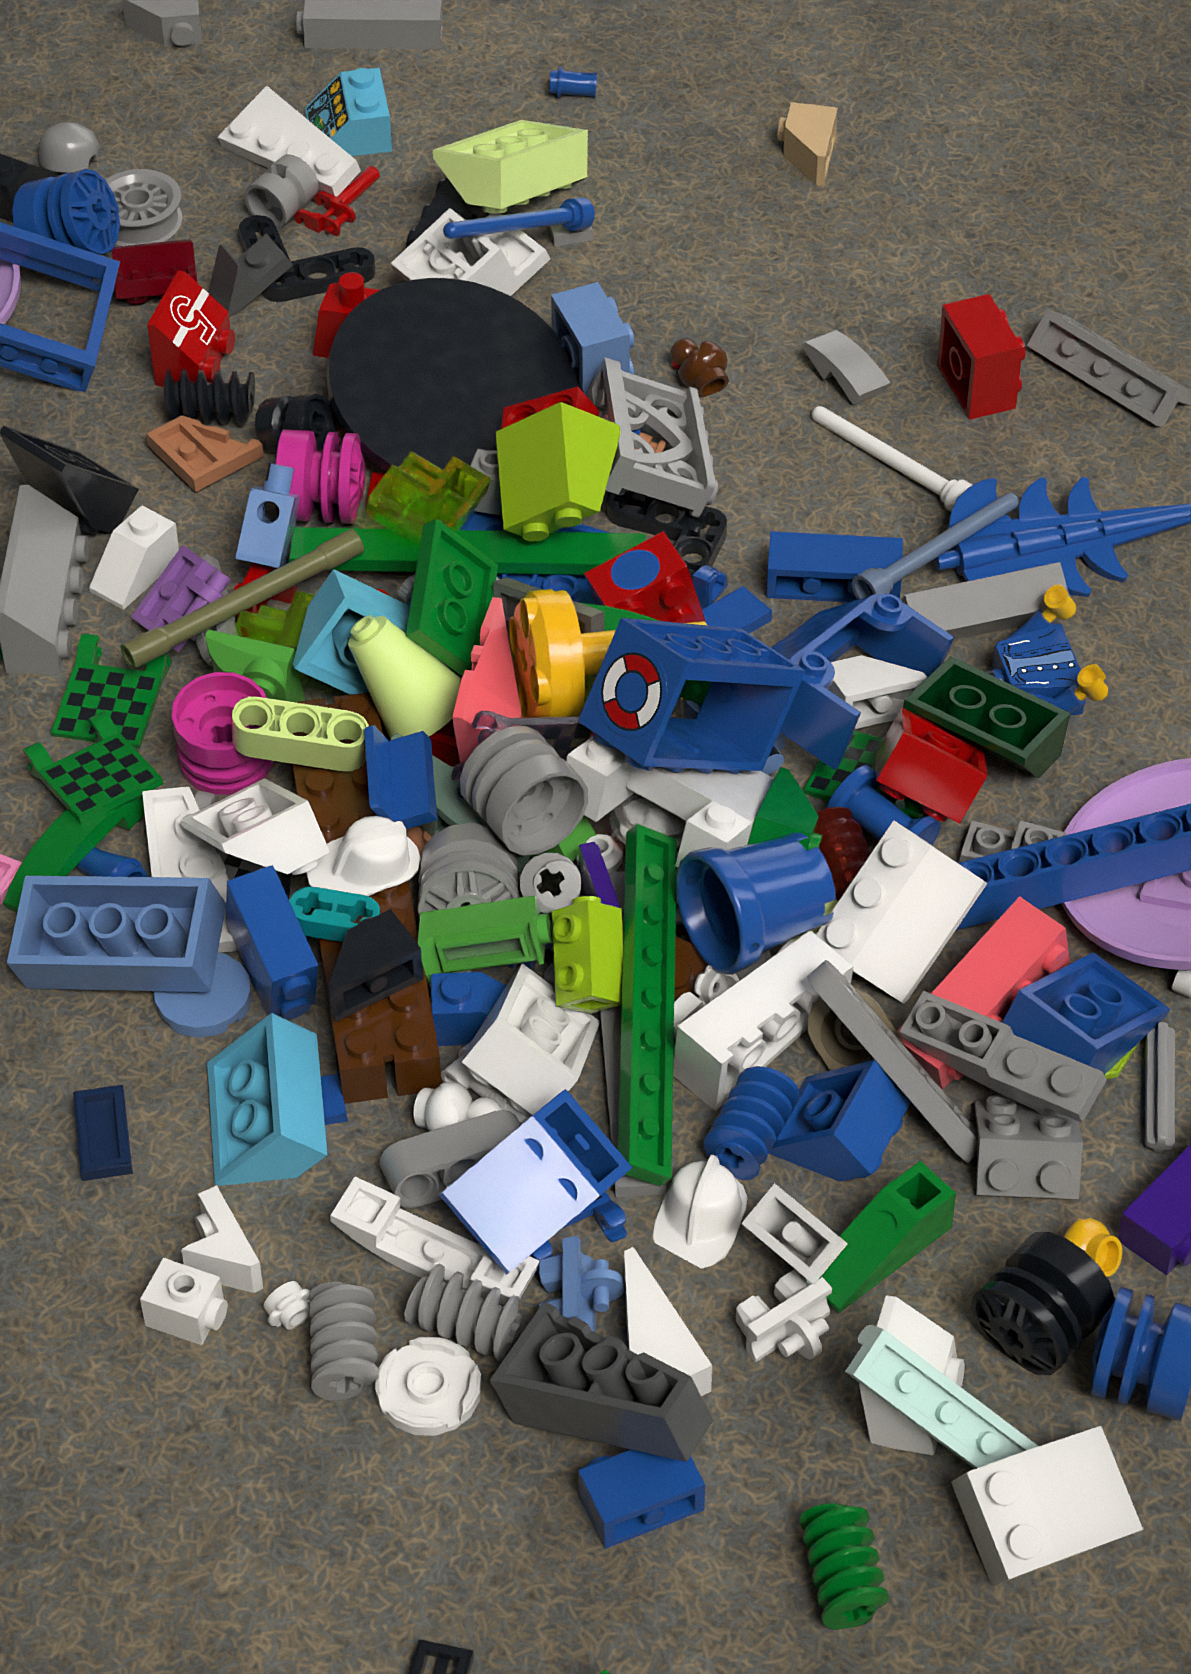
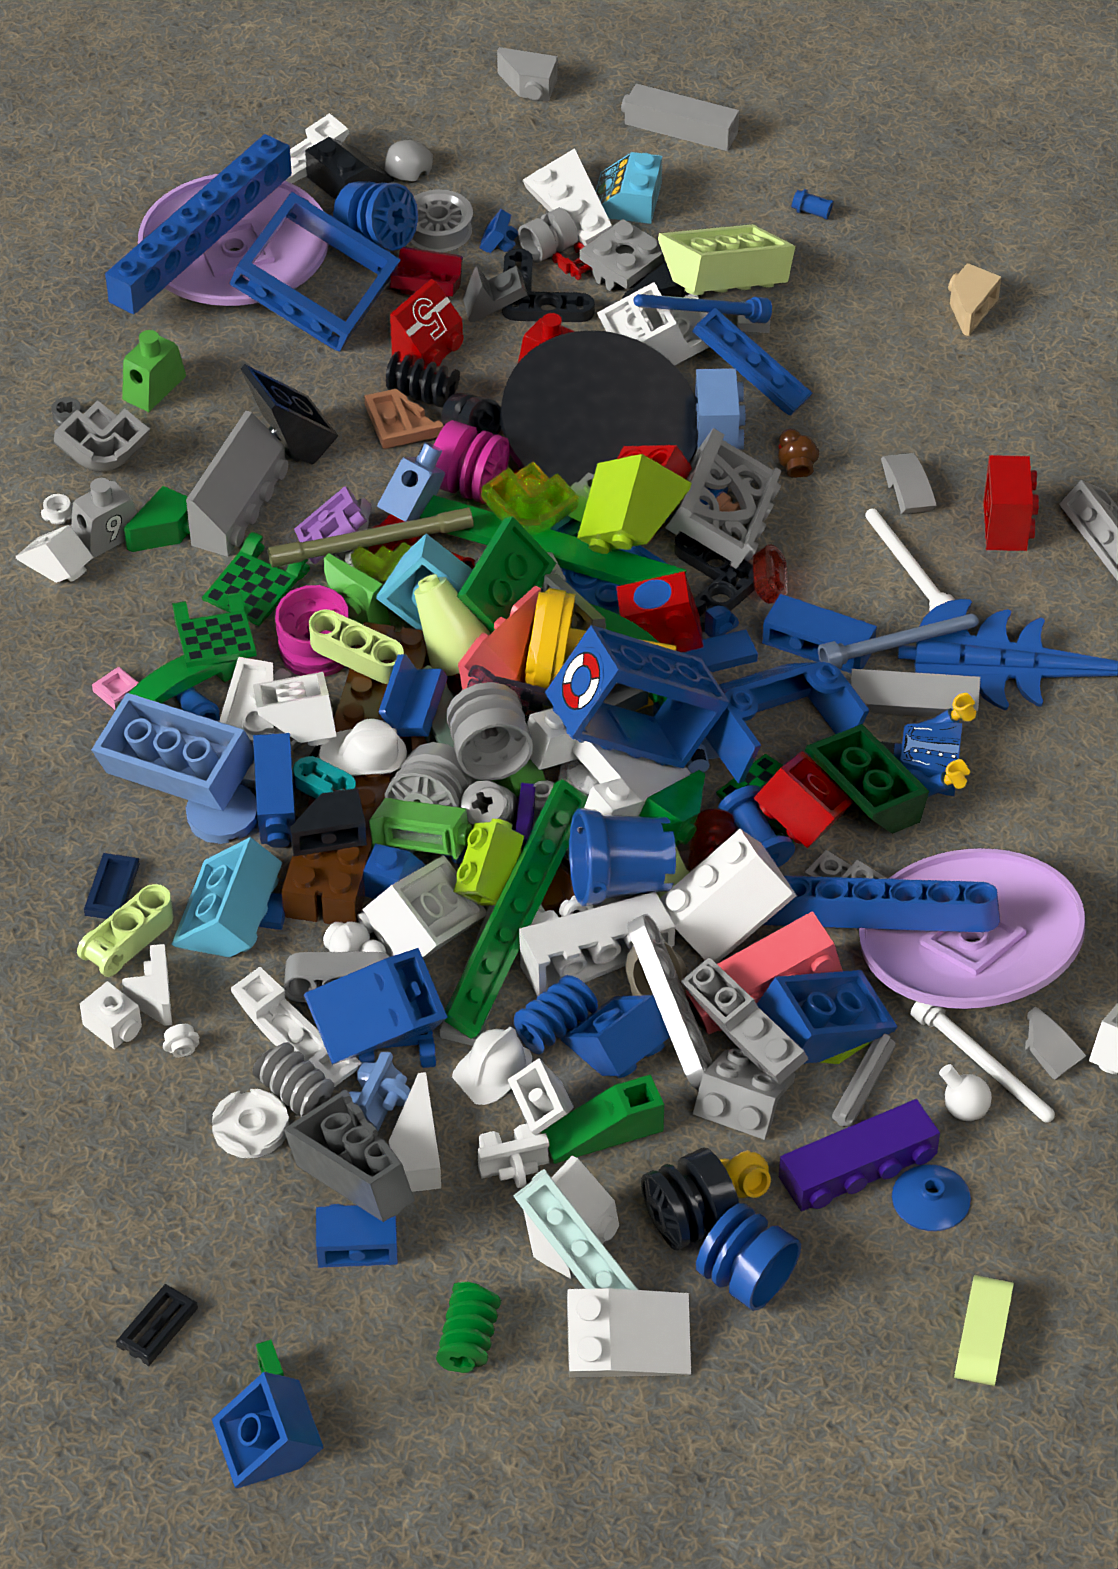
camera: 20 degrees right, 0 degrees up
(135, 557) = (313, 485): white slope -> none
(141, 1208) = (128, 930): none -> yellowish green piece
(218, 204) = (499, 233): none -> blue tile
(342, 1340) = (203, 1074): light grey piece -> none
(385, 192) = (622, 256): none -> light grey piece
(586, 266) = (752, 362): none -> blue tile
(741, 513) = (770, 573): none -> clear red beam
(874, 687) = (789, 729): white slope -> none

